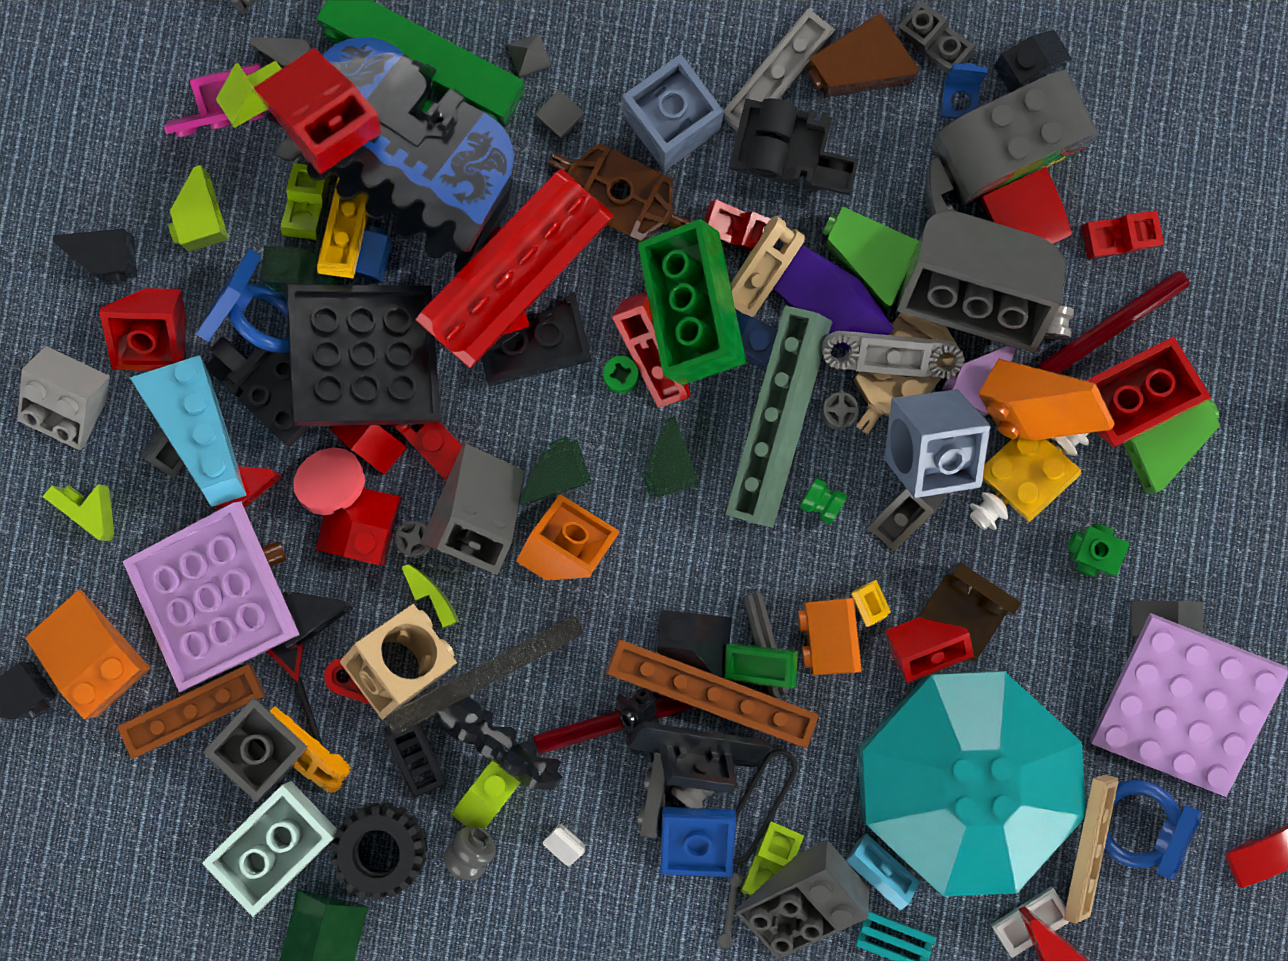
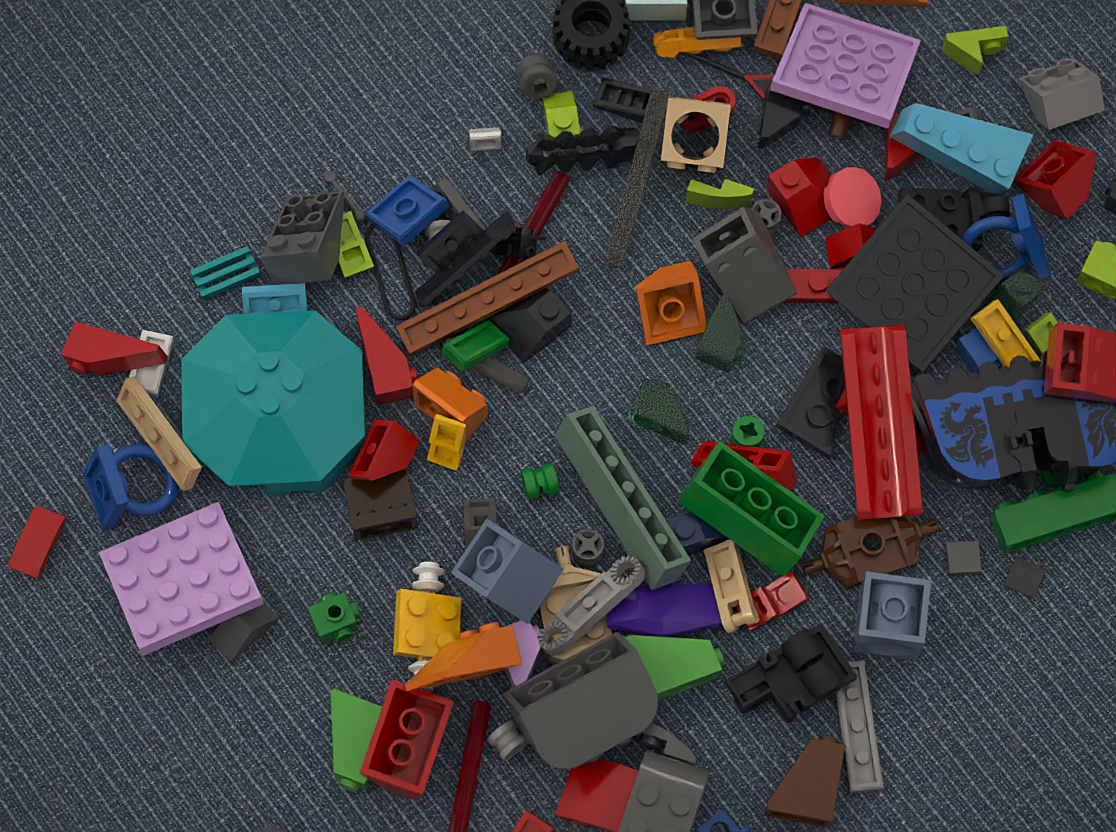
camera: 135 degrees right, 15 degrees down
(847, 724) = (386, 363): none -> red slope

